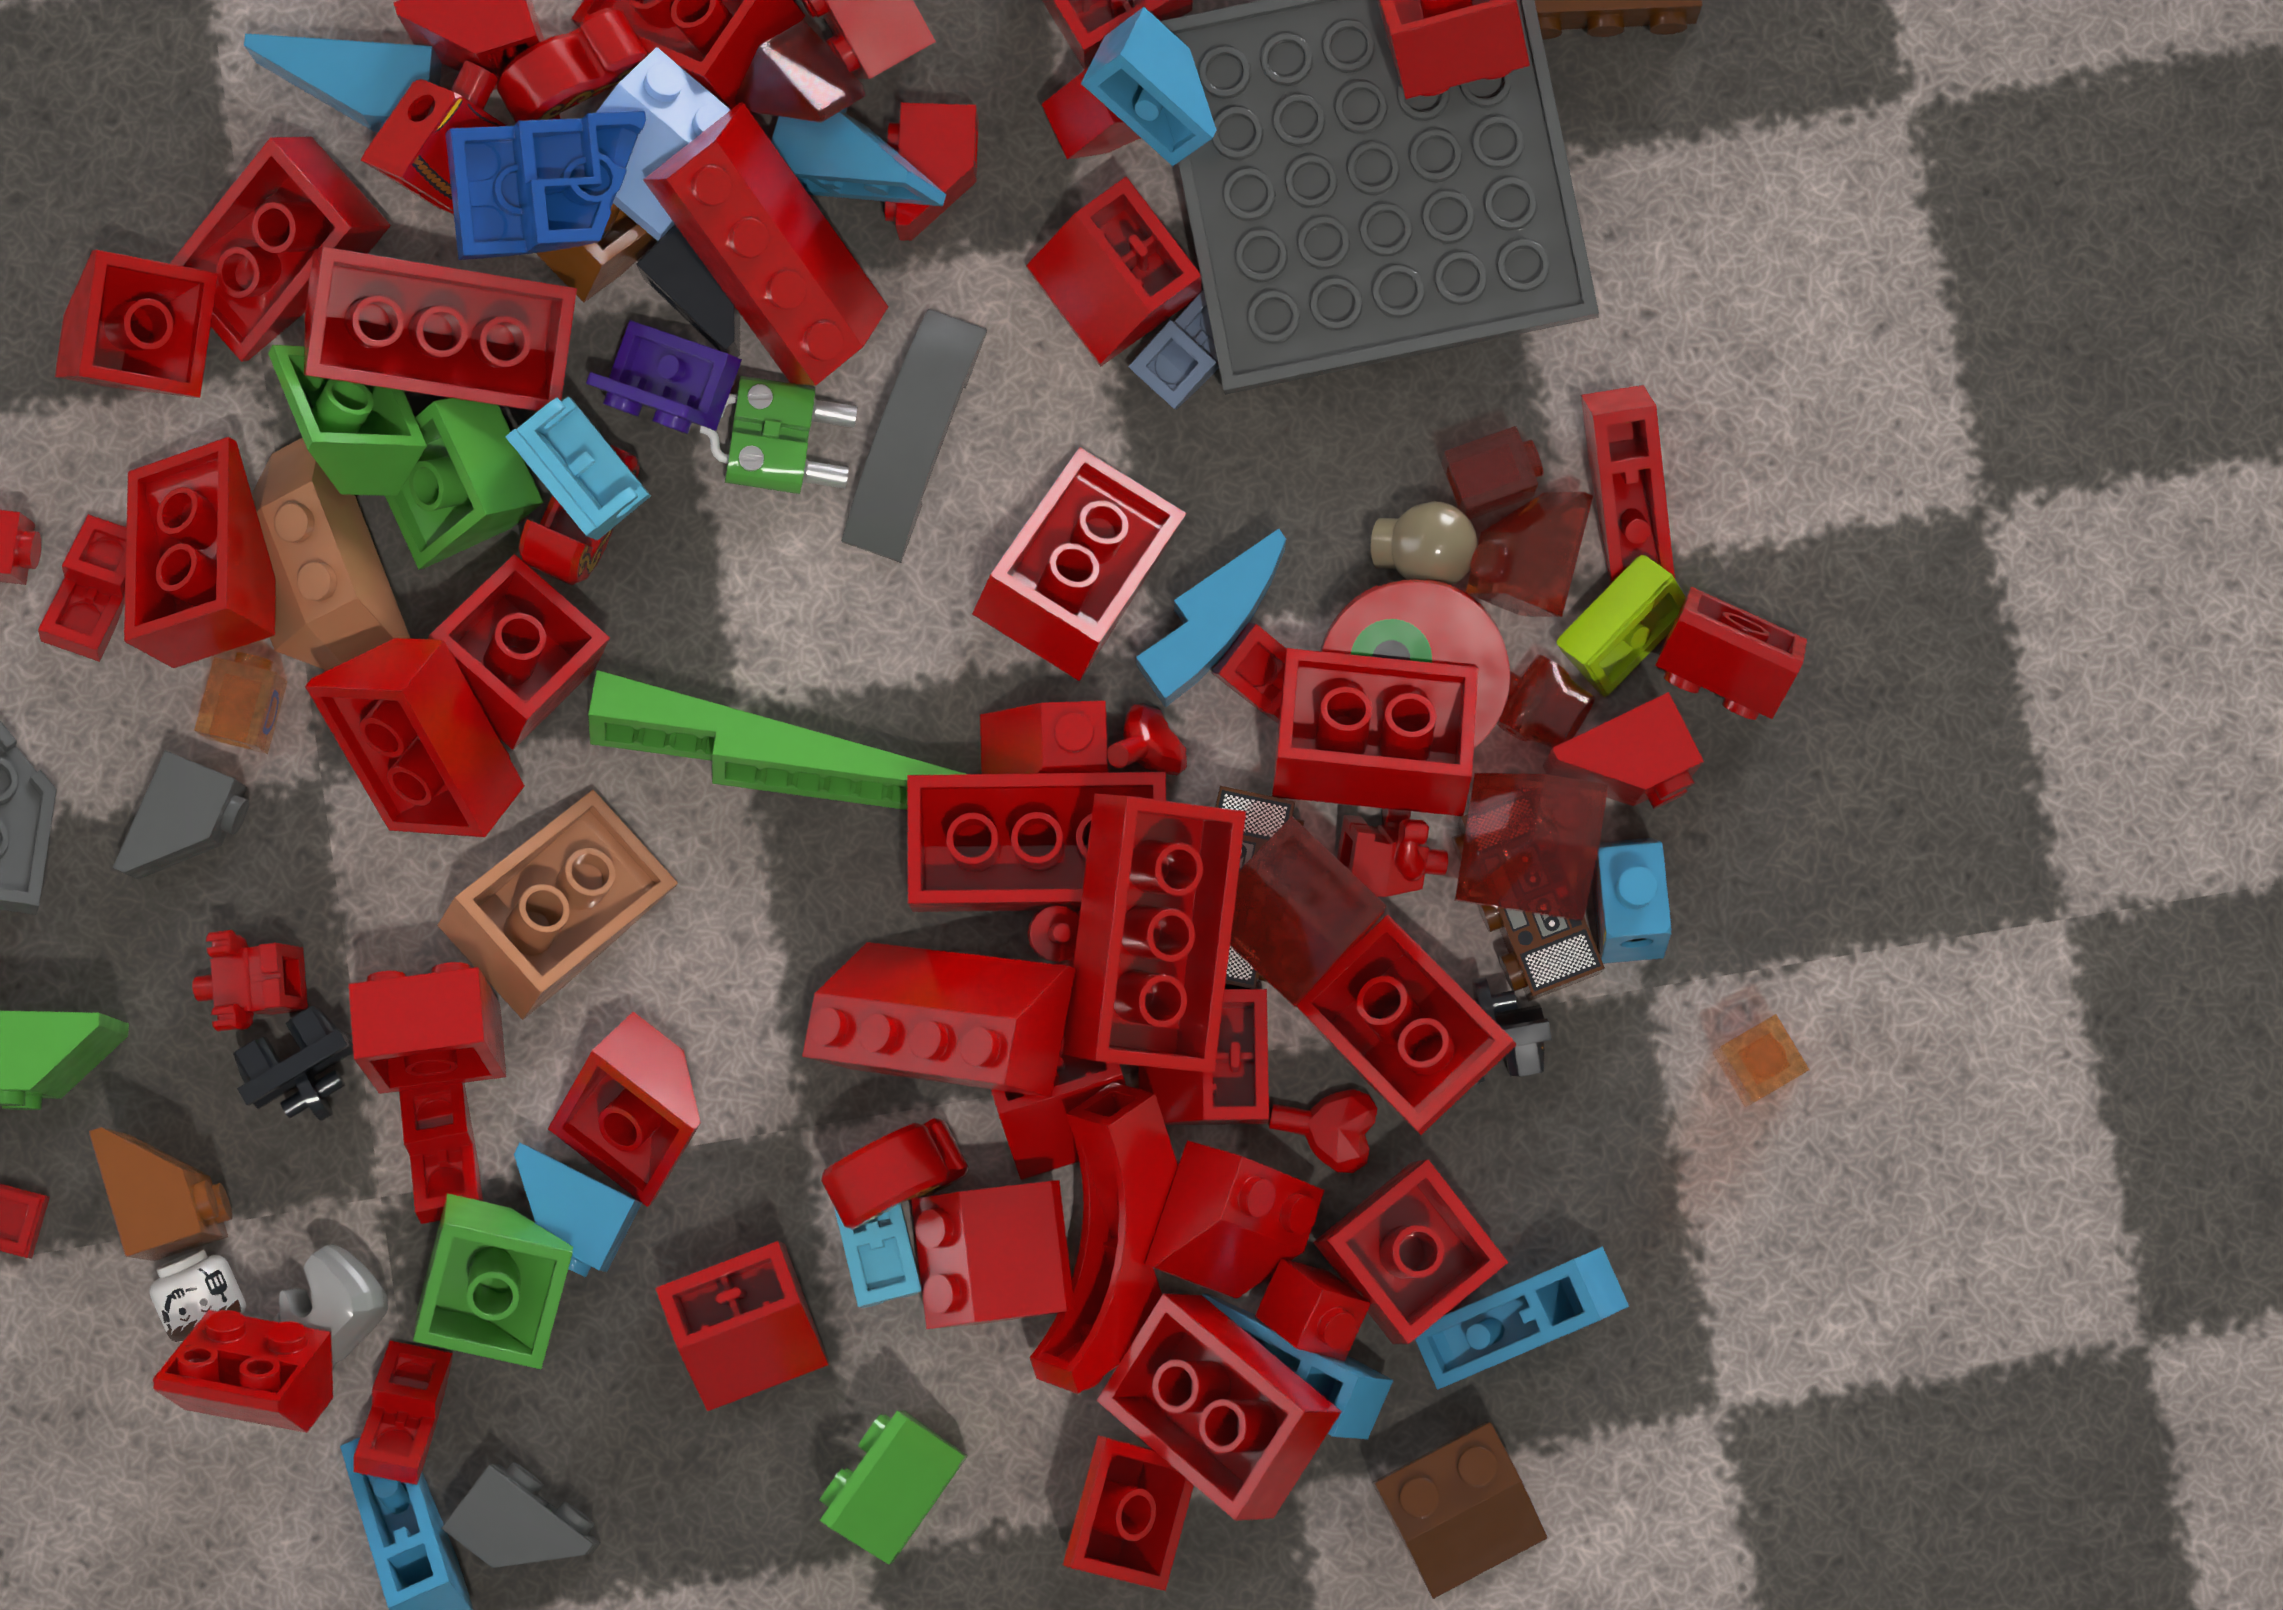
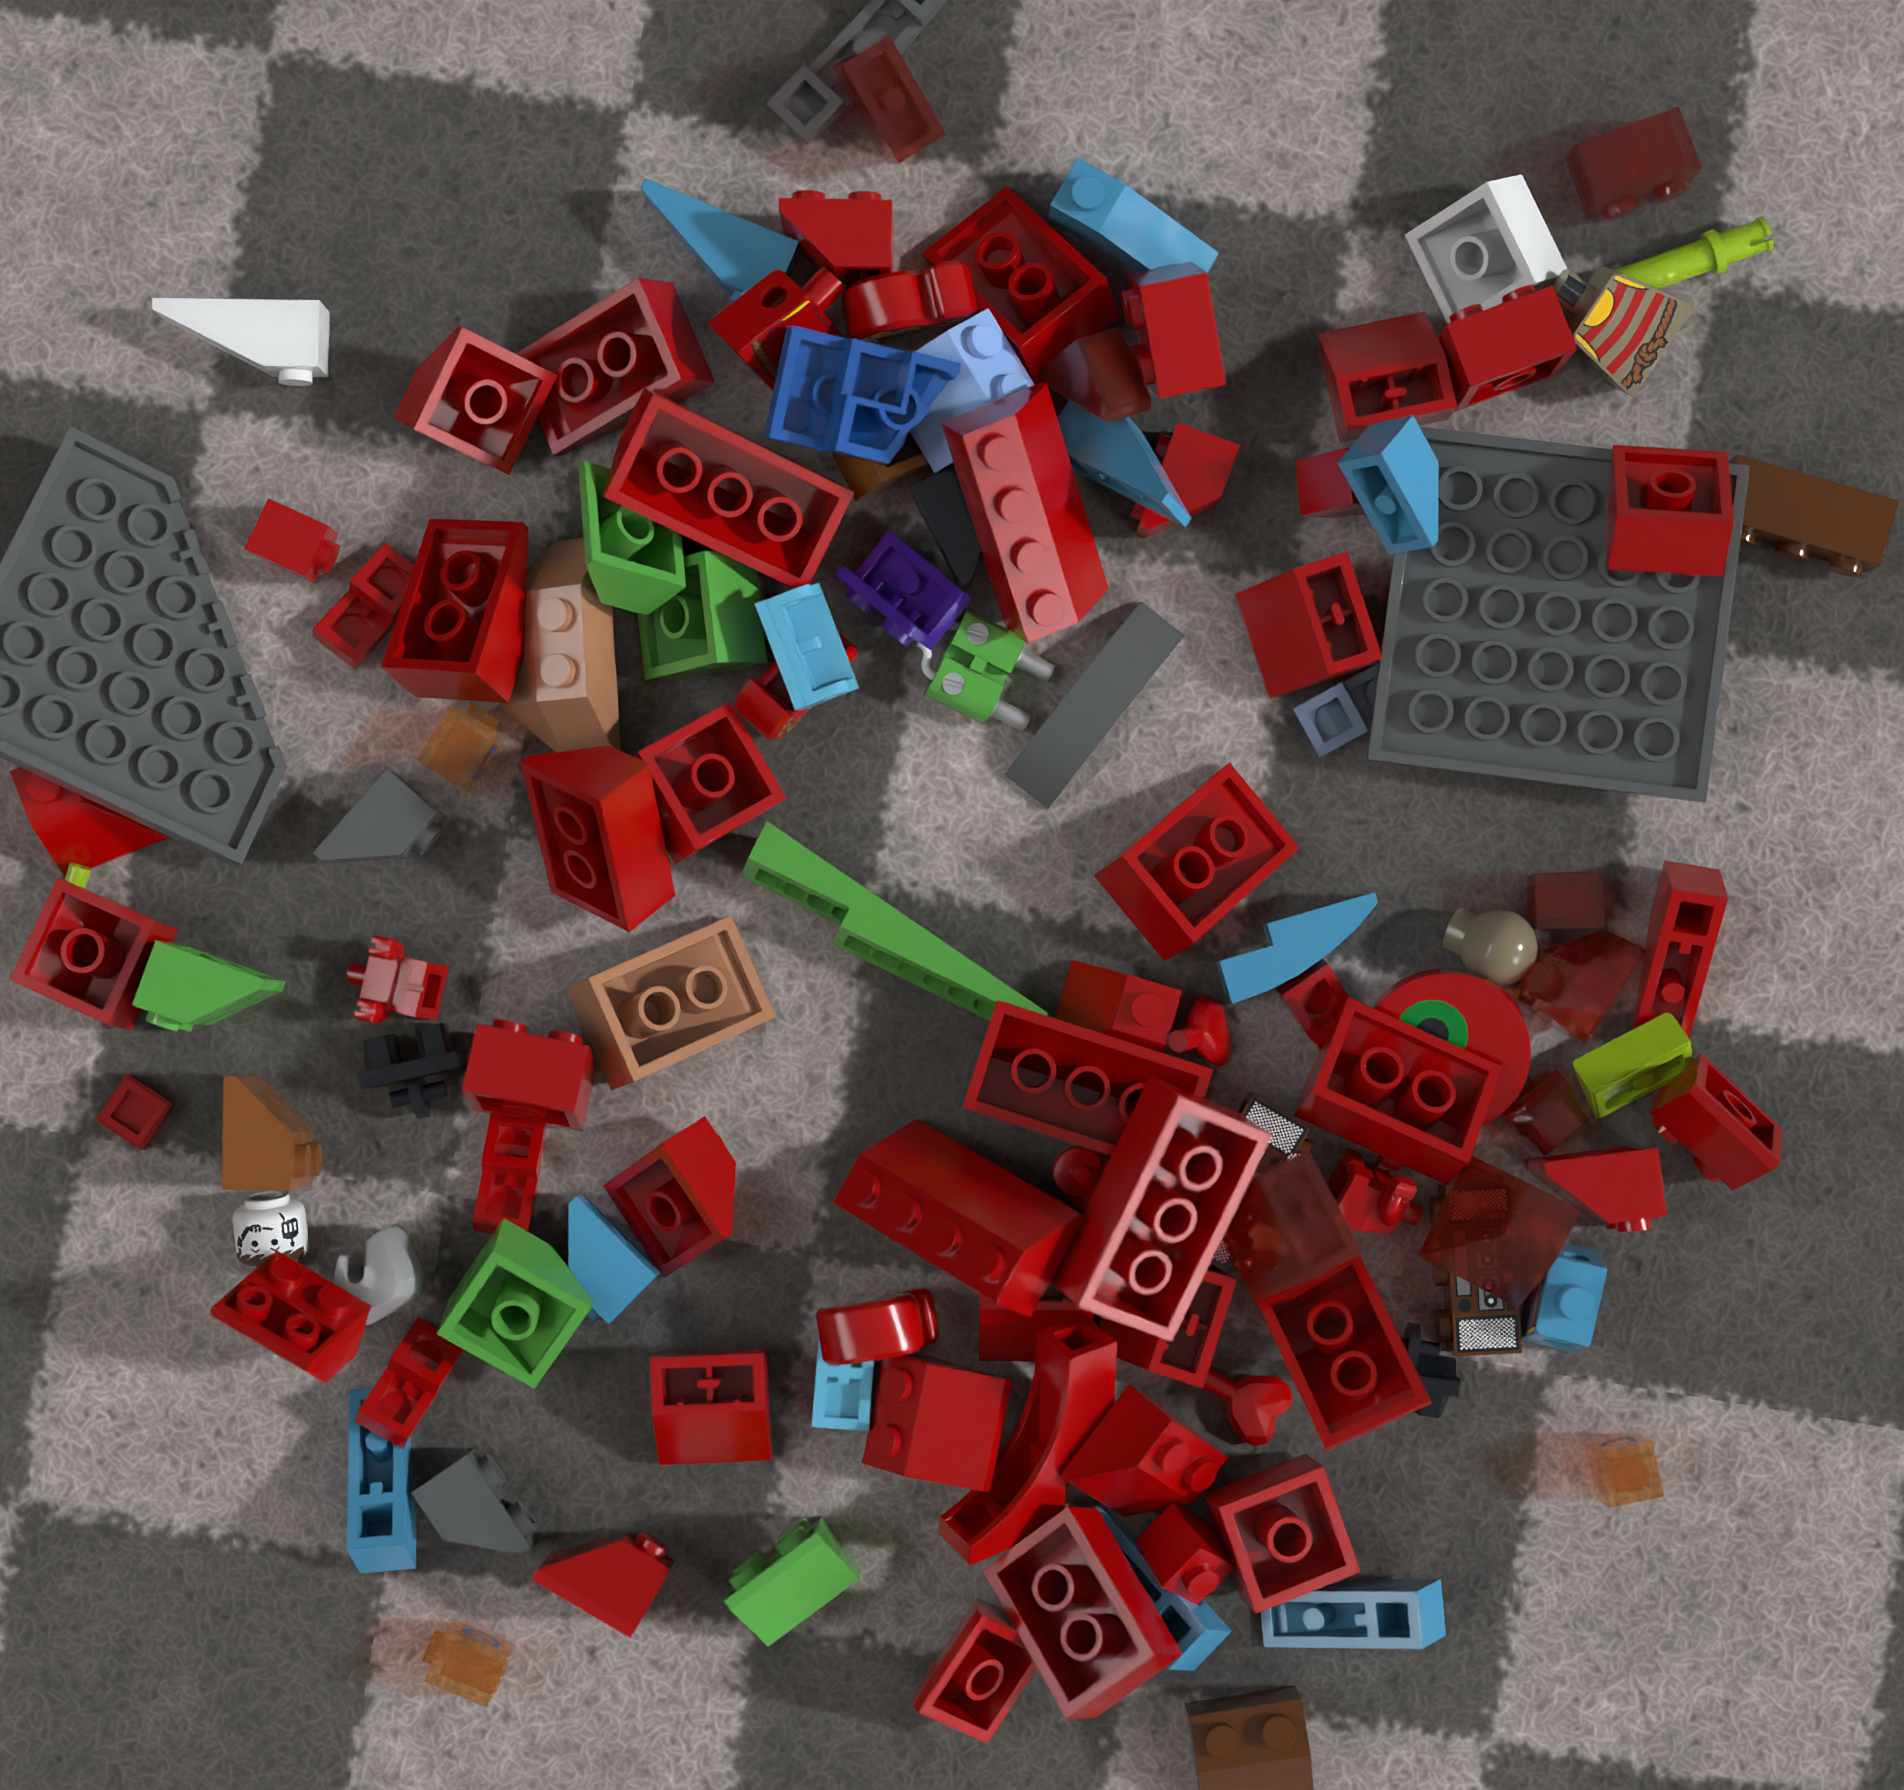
camera: 15 degrees right, 5 degrees up
(693, 1547) = (609, 1577): none -> red slope

